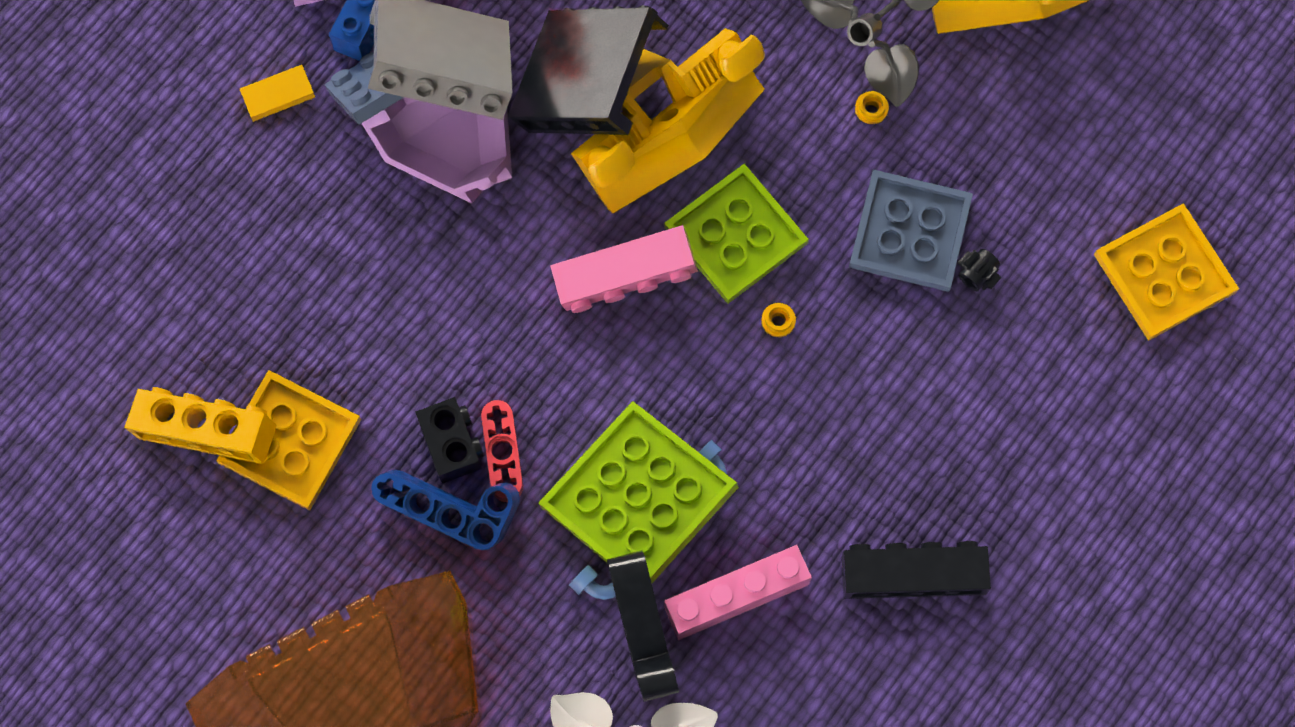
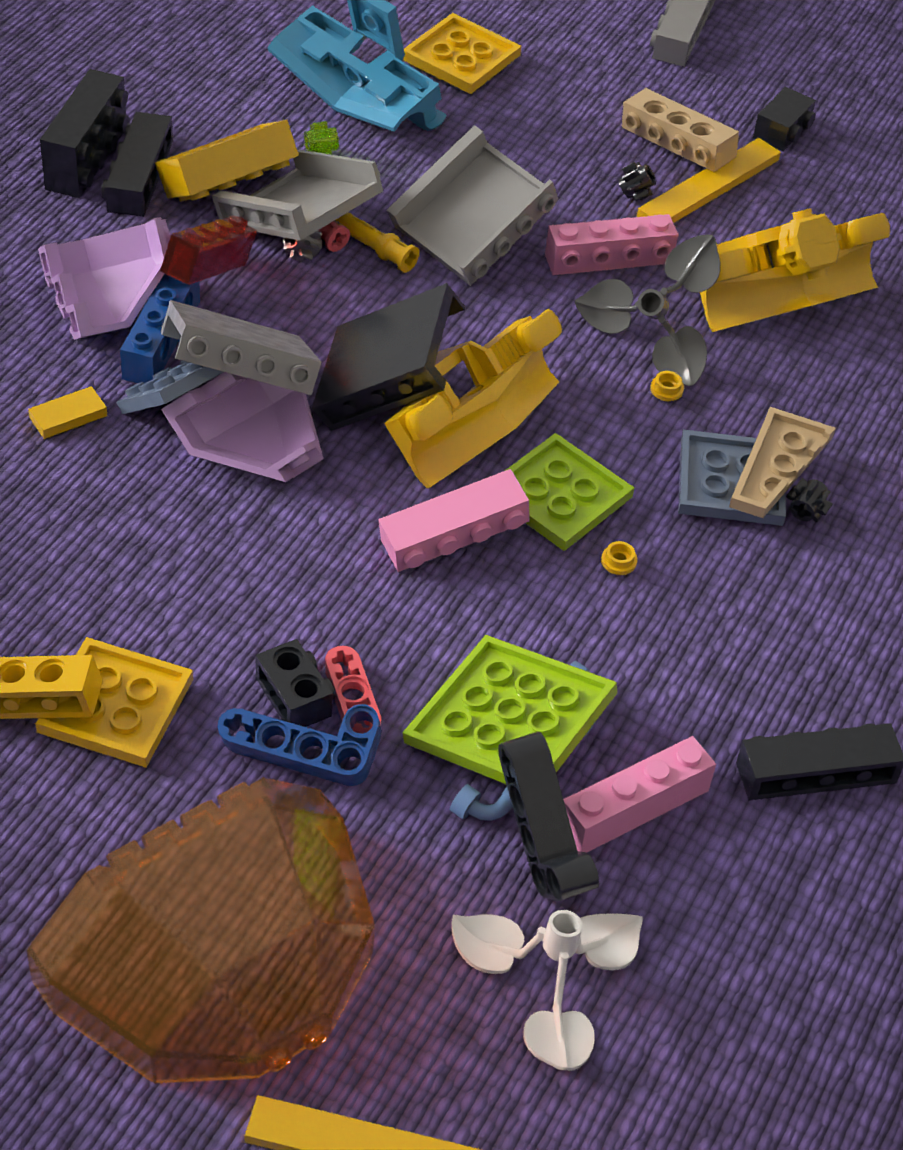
camera: 15 degrees left, 25 degrees down
(960, 217) = (777, 460): none -> tan wing

